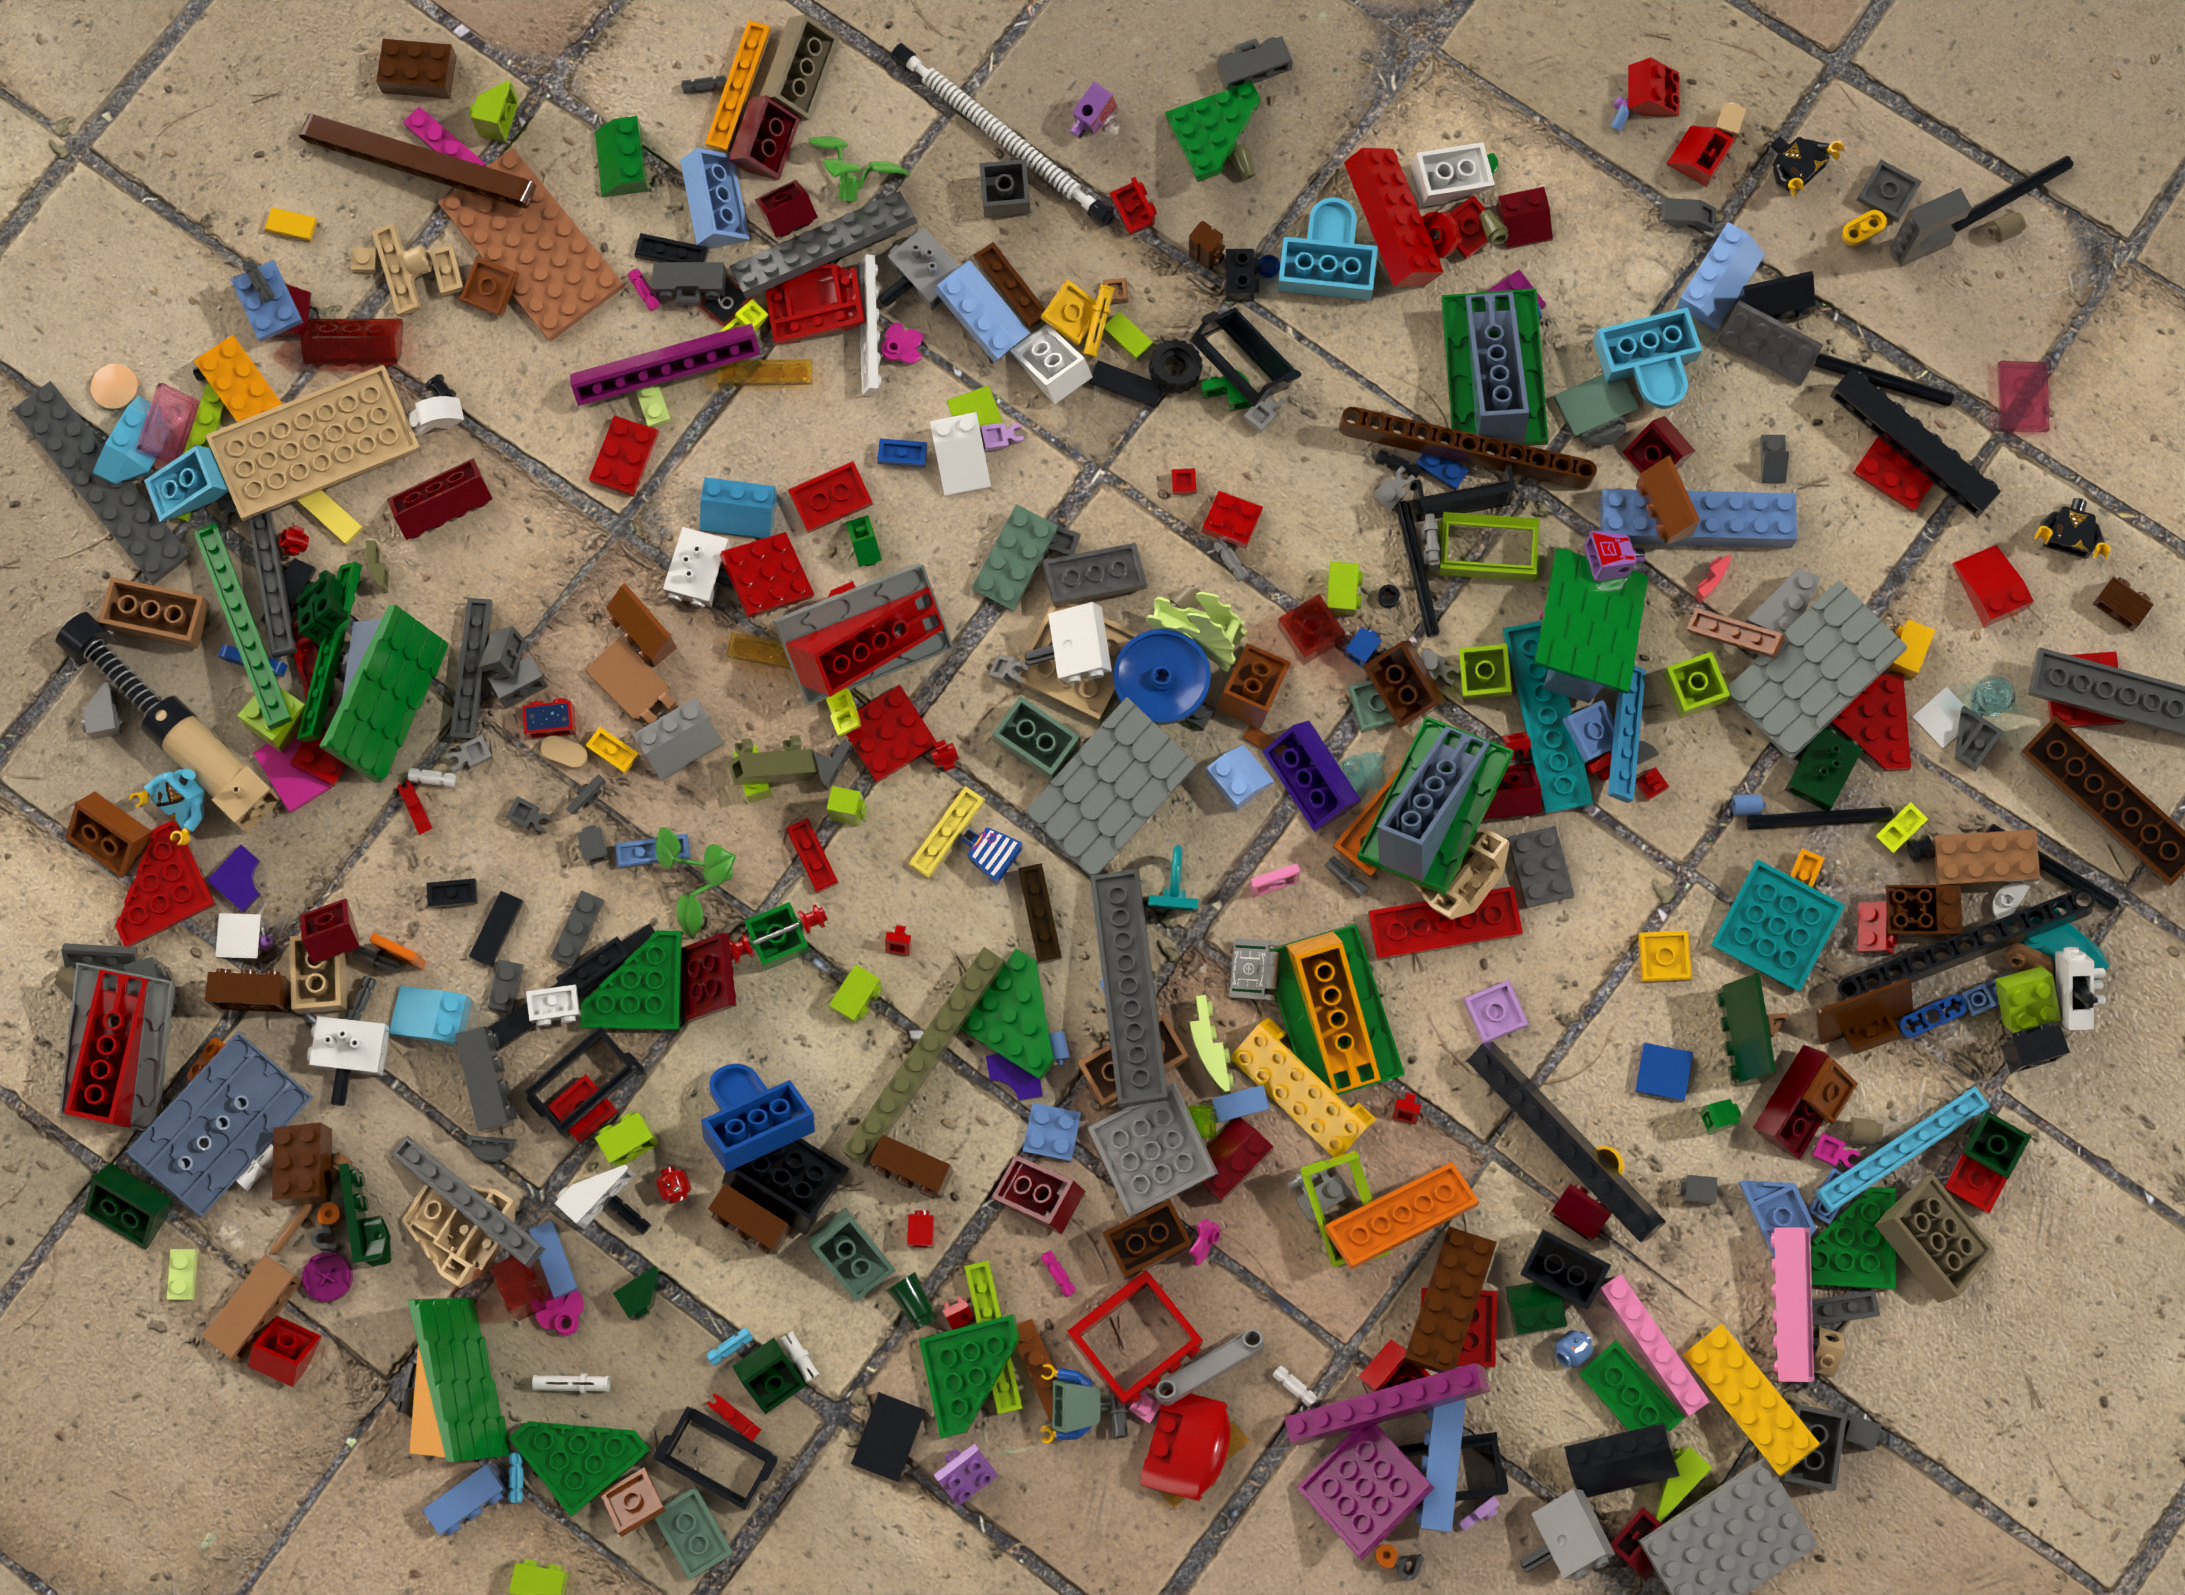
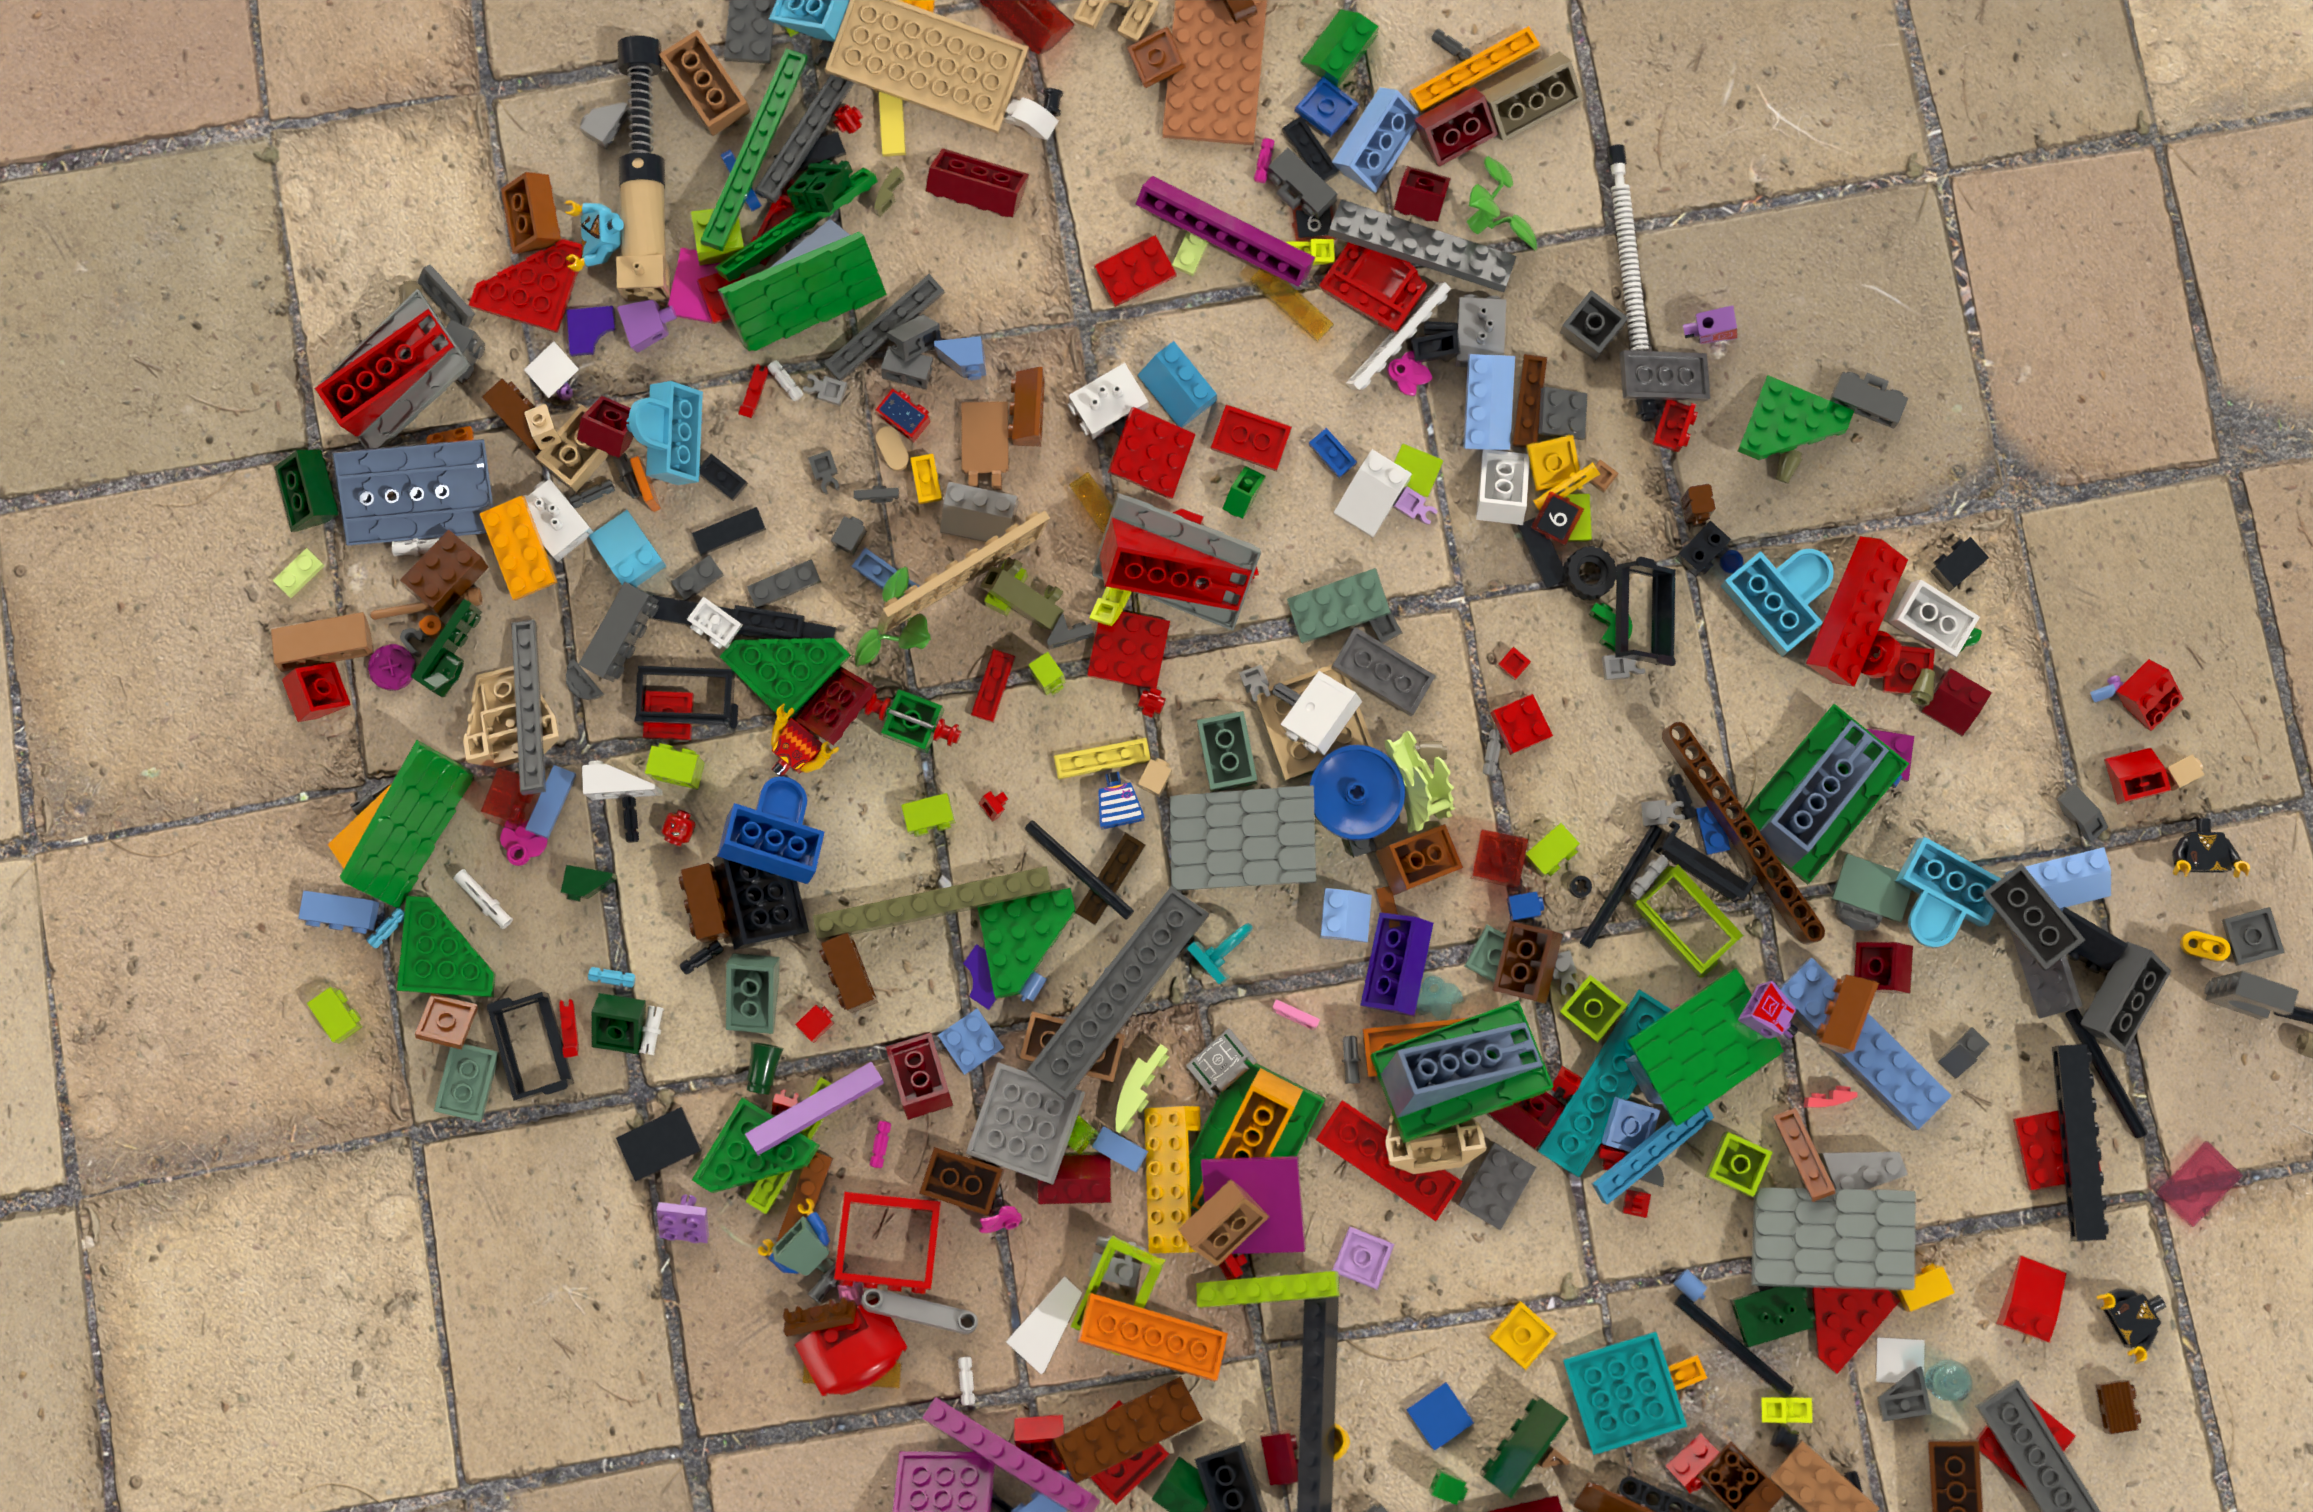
camera: 45 degrees right, 5 degrees up
(275, 978) = (542, 426): none -> tan bracket
(280, 832) = (645, 323): none -> medium lavender torso
(343, 1090) = (518, 548): none -> light orange plate
(377, 889) = (671, 430): none -> medium azure brick
(554, 633) = (963, 356): none -> medium blue slope
(653, 210) = (1326, 107): none -> blue tile
(706, 1038) = (797, 746): none -> torso
(710, 785) = (960, 573): none -> tan plate
(785, 1265) = (701, 957): none -> black axle
(905, 305) = (1437, 346): none -> black slope
(983, 1292) = (814, 1108): none -> tile
(1000, 807) = (1155, 777): none -> tan brick
(1010, 927) = (1079, 870): none -> black axle
(1043, 271) = (1562, 413): none -> dark grey plate
(1092, 177) = (1664, 375): none -> flat silver plate
(1113, 348) = (1557, 518): none -> piece
(1139, 1444) = (819, 1317): none -> reddish brown plate
(1313, 1292) = (1043, 1328): none -> white sticker
(1371, 1079) = (1223, 1223): none -> medium nougat slope
(1380, 1047) = (1275, 1188): none -> magenta tile
(1432, 120) = (1959, 564): none -> black brick
(1450, 1098) = (1267, 1289): none -> lime plate
(1729, 312) = (2033, 917): none -> dark grey brick
(1846, 312) = (2125, 997): none -> dark grey brick

